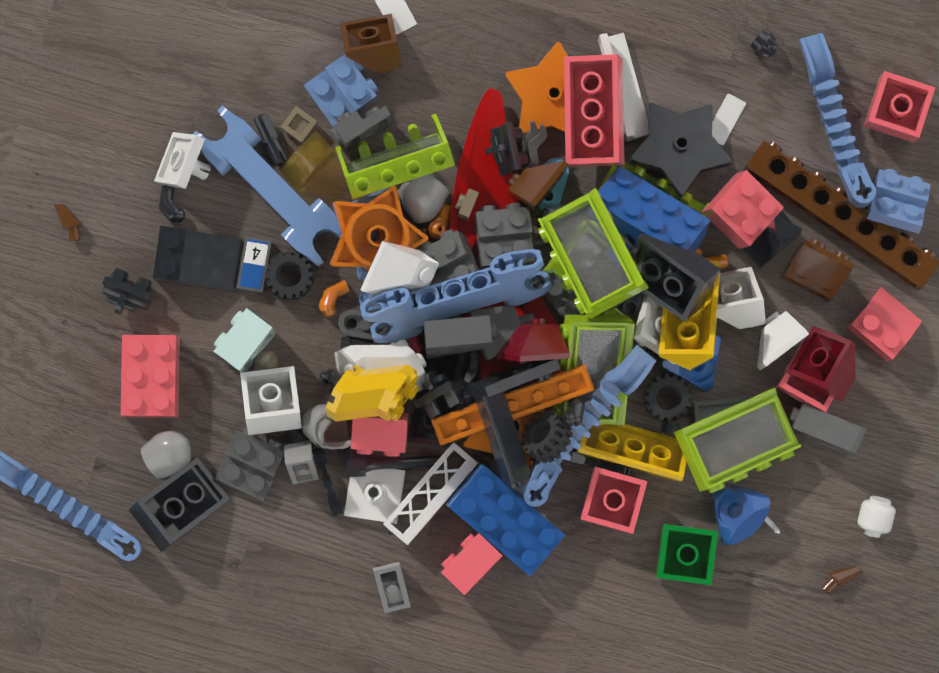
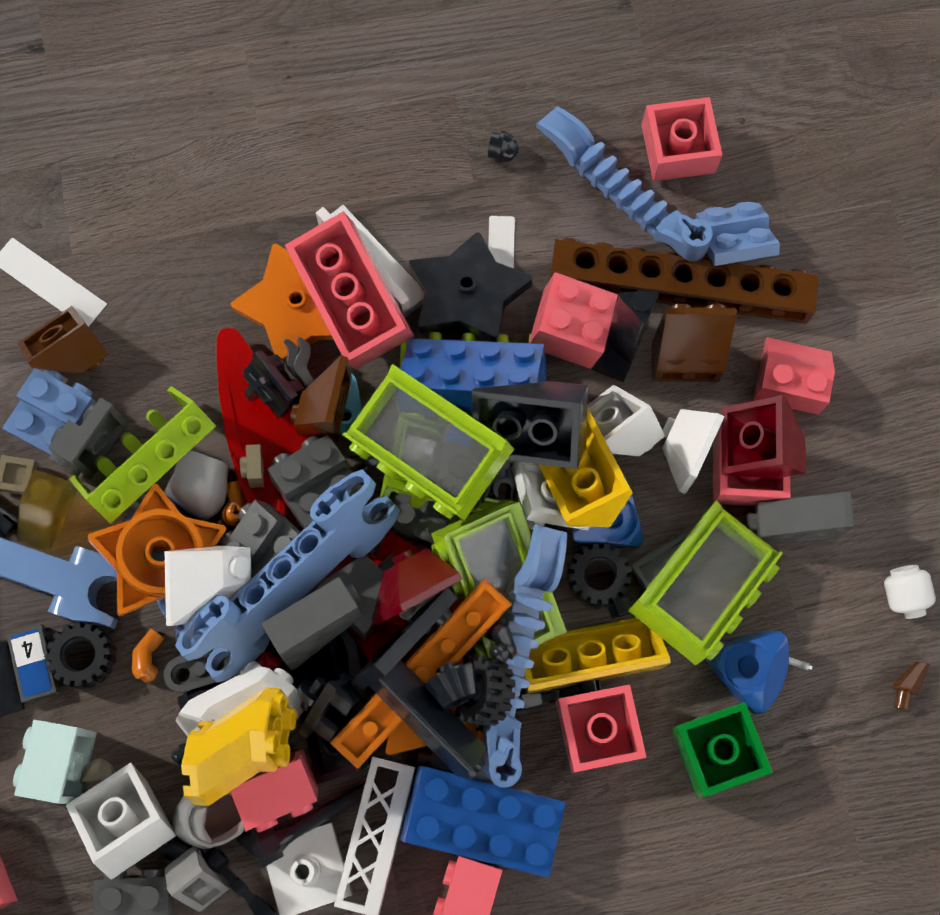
camera: 30 degrees left, 10 degrees down
(529, 423) = (453, 684): none -> black piece

